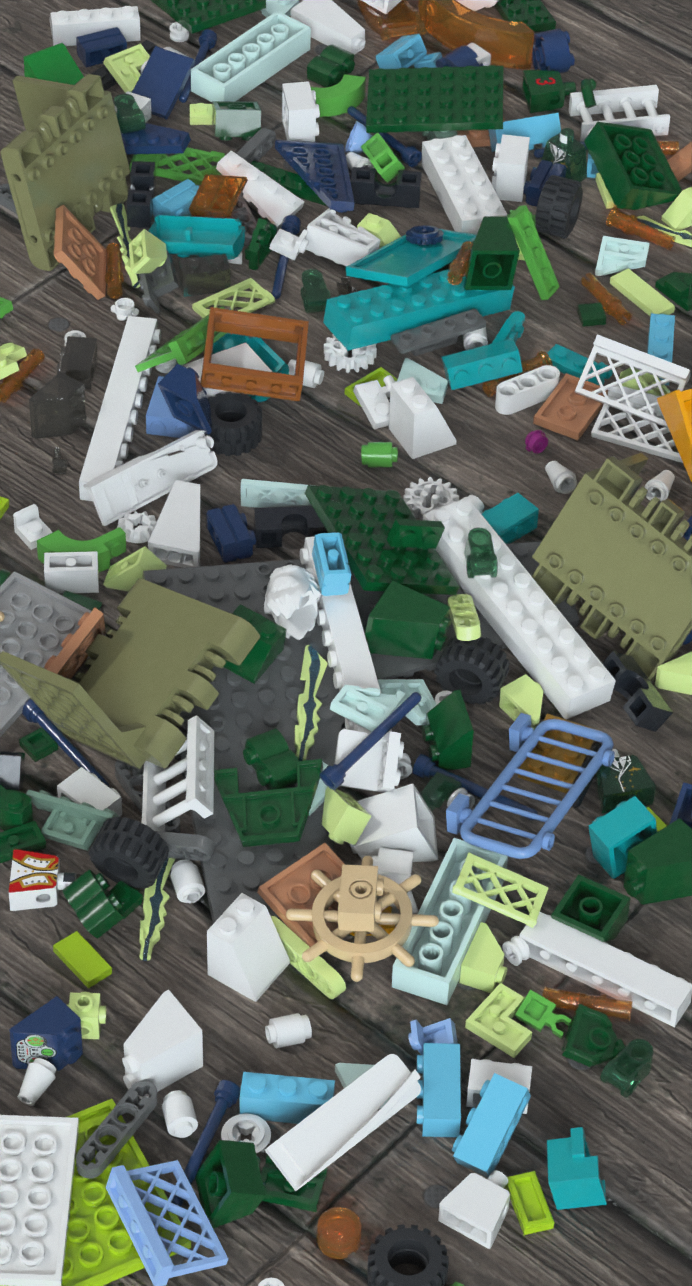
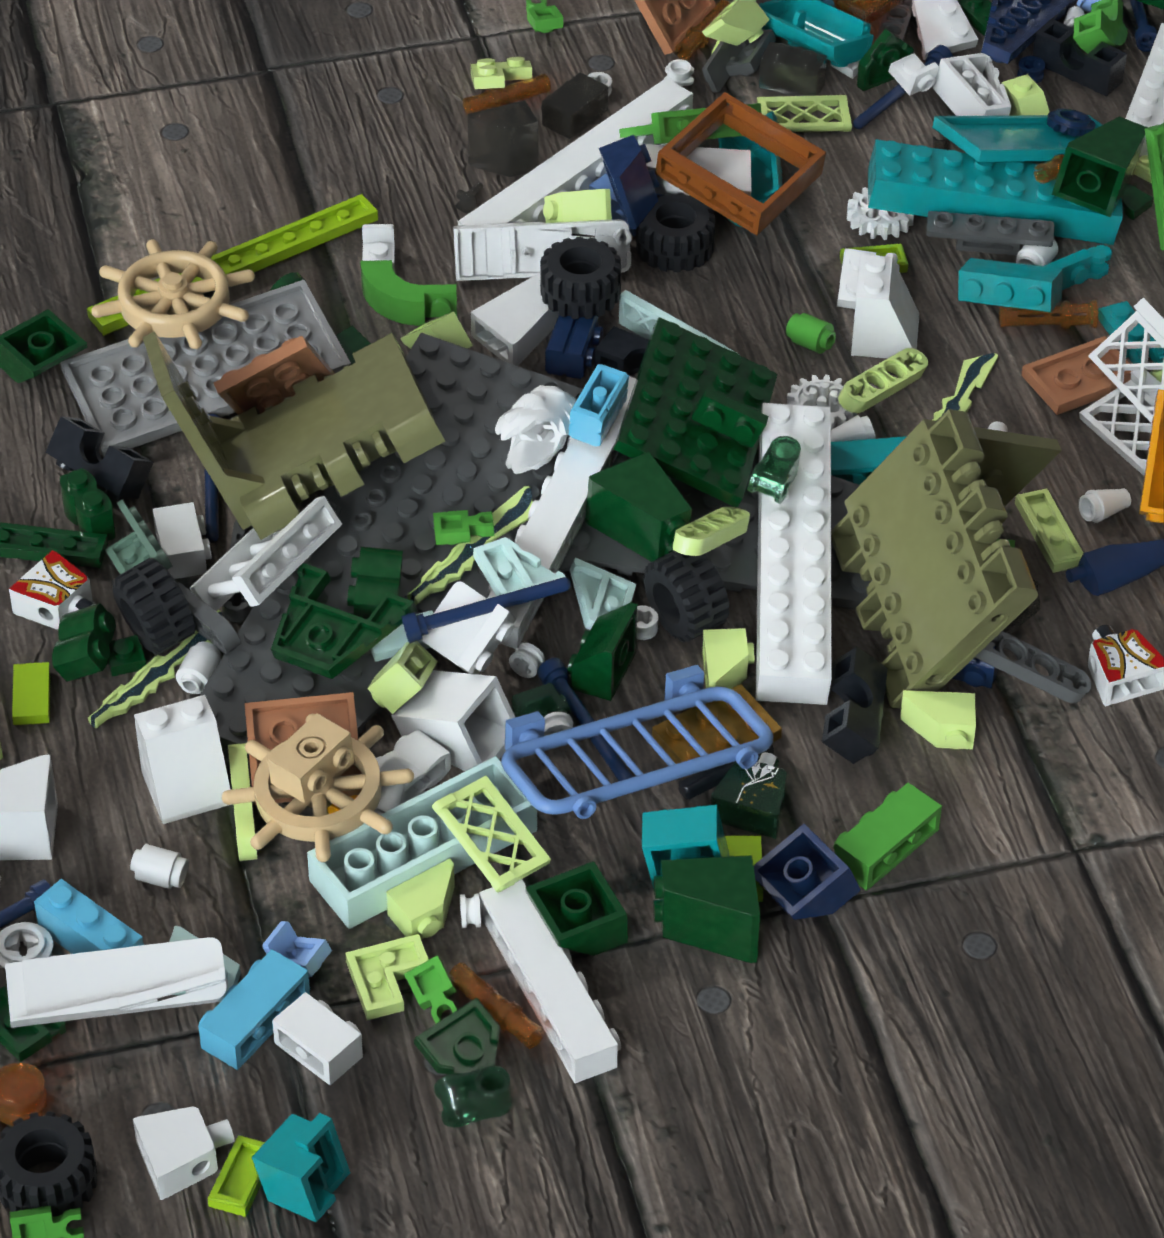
camera: 35 degrees right, 0 degrees up
(38, 744) = (185, 466): dark green tile -> none
(71, 572) = (367, 307): white brick -> none
(142, 532) = (473, 297): white gear -> none
(156, 435) = (578, 206): none -> yellowish green slope
(211, 483) = (580, 277): none -> black tyre
(265, 649) = (464, 459): dark green slope -> none
(291, 696) = (457, 526): none -> bright green plate
(312, 373) = (809, 215): white brick -> none
(314, 291) = (899, 126): clear green piece -> none
(359, 210) = (1033, 67): none -> dark blue bush
(431, 383) = (932, 279): light aqua wing -> none
(458, 466) = (879, 376): none -> yellowish green beam
(491, 1125) = (260, 1070): medium azure brick -> none
(510, 463) = (972, 375): none -> yellowish green sword
(526, 389) = (1041, 333): white beam -> none
(536, 441) = (1006, 400): magenta plate -> none

